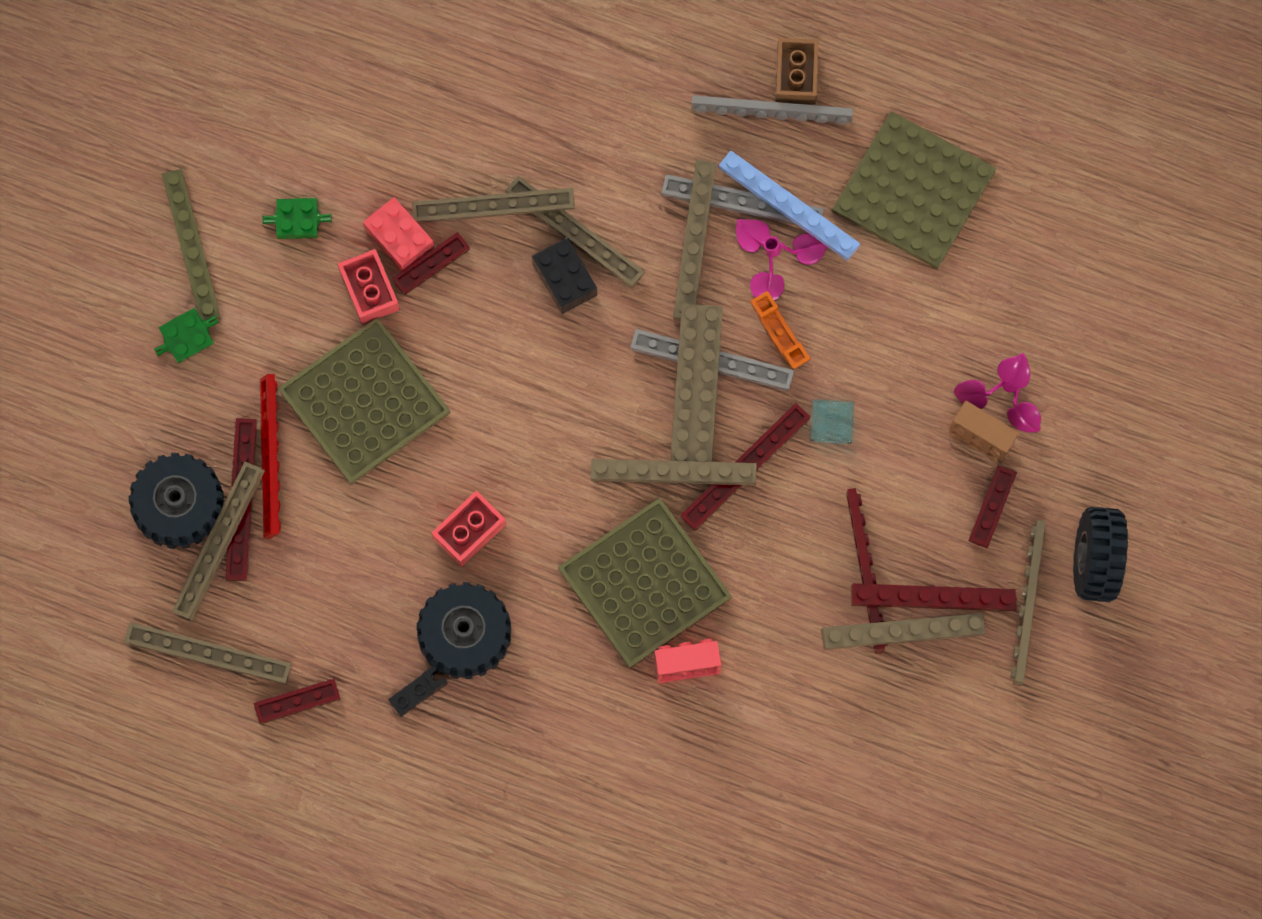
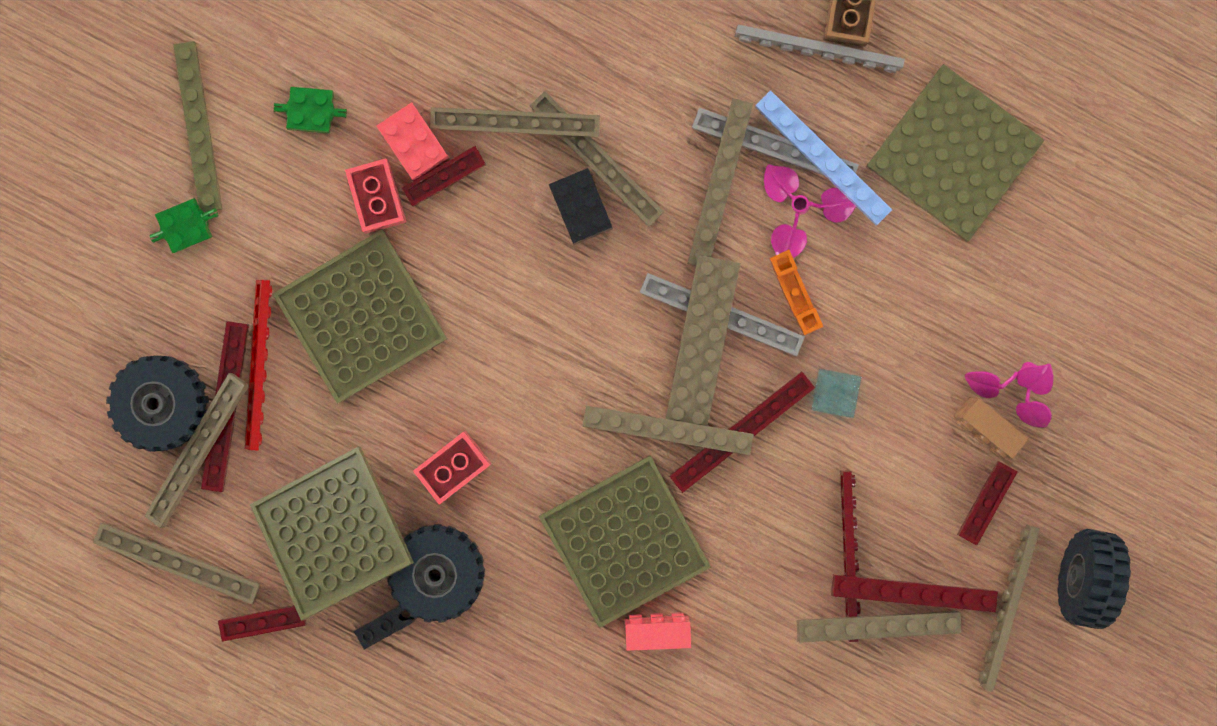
camera: 10 degrees right, 15 degrees up
(358, 601) = (331, 533): none -> olive plate

